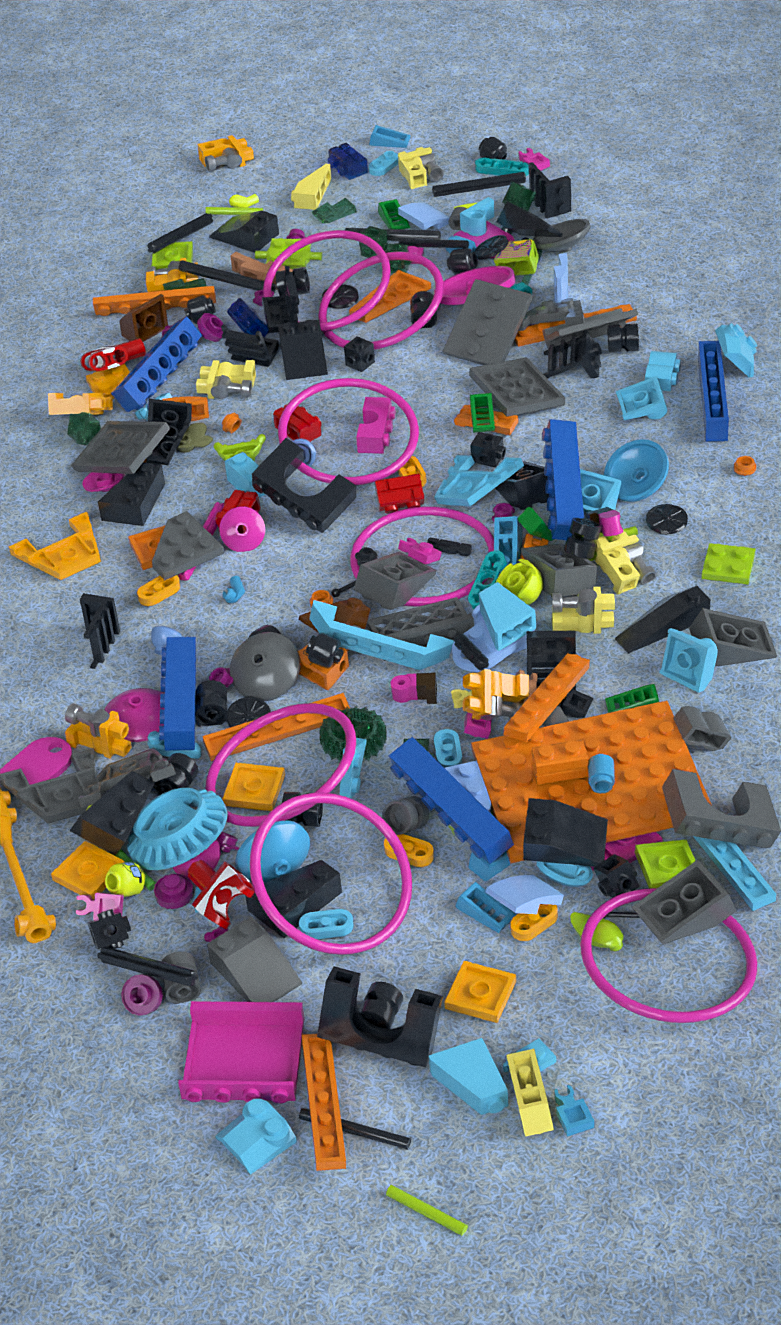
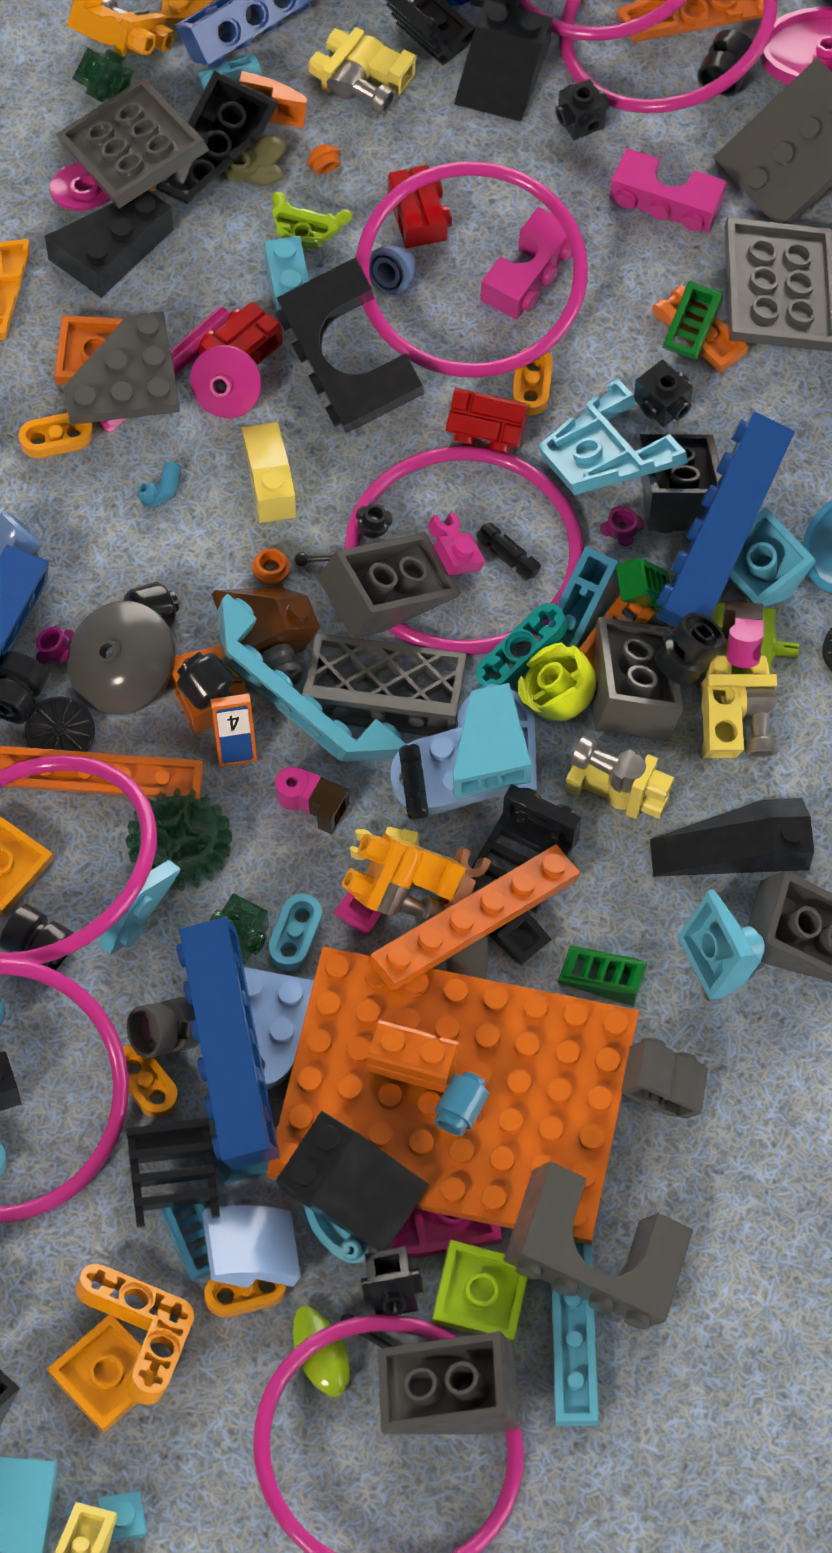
camera: 20 degrees right, 20 degrees up
(294, 561) = (269, 472): none -> light yellow slope
(353, 670) = (234, 730): none -> tile
(444, 372) = (690, 204): none -> dark pink arch
(450, 868) = (171, 1142): none -> black plate
(498, 951) = (158, 1326): none -> light orange beam

